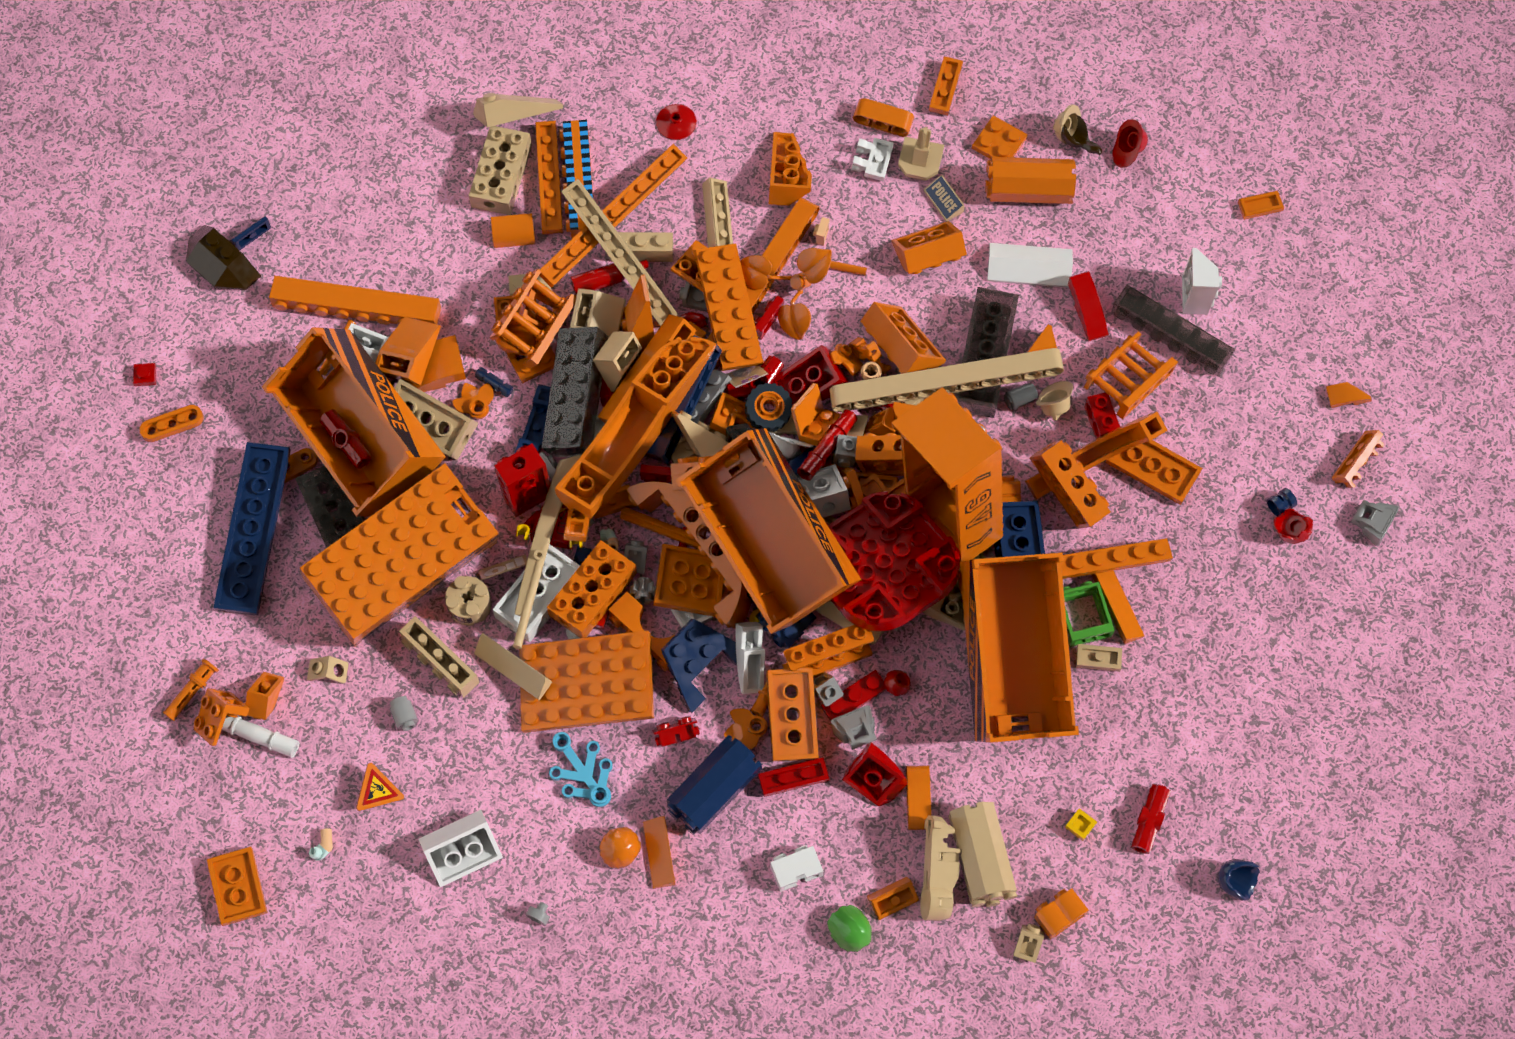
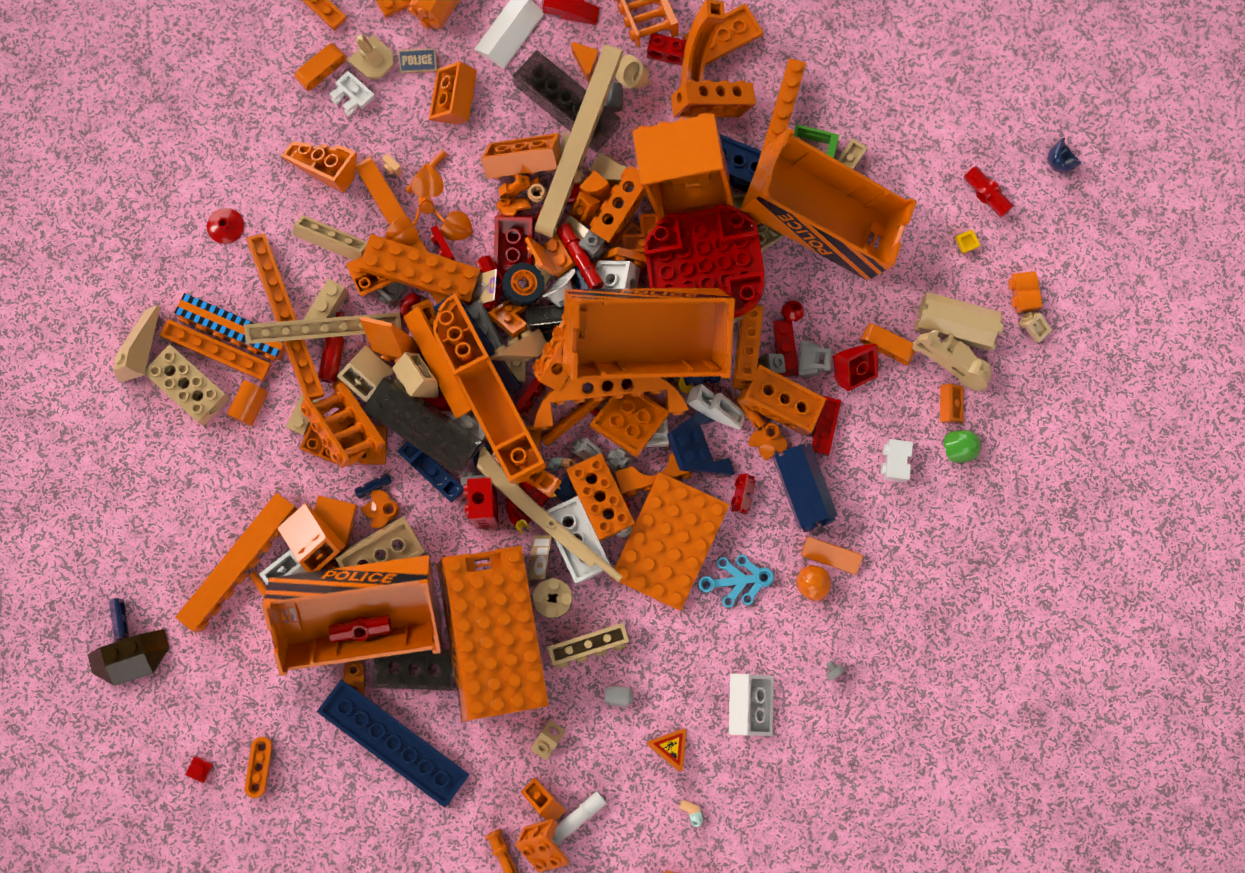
camera: 65 degrees left, 10 degrees up
(512, 666) = (627, 592): tan slope -> none
(1119, 607) = (831, 124): orange slope -> none

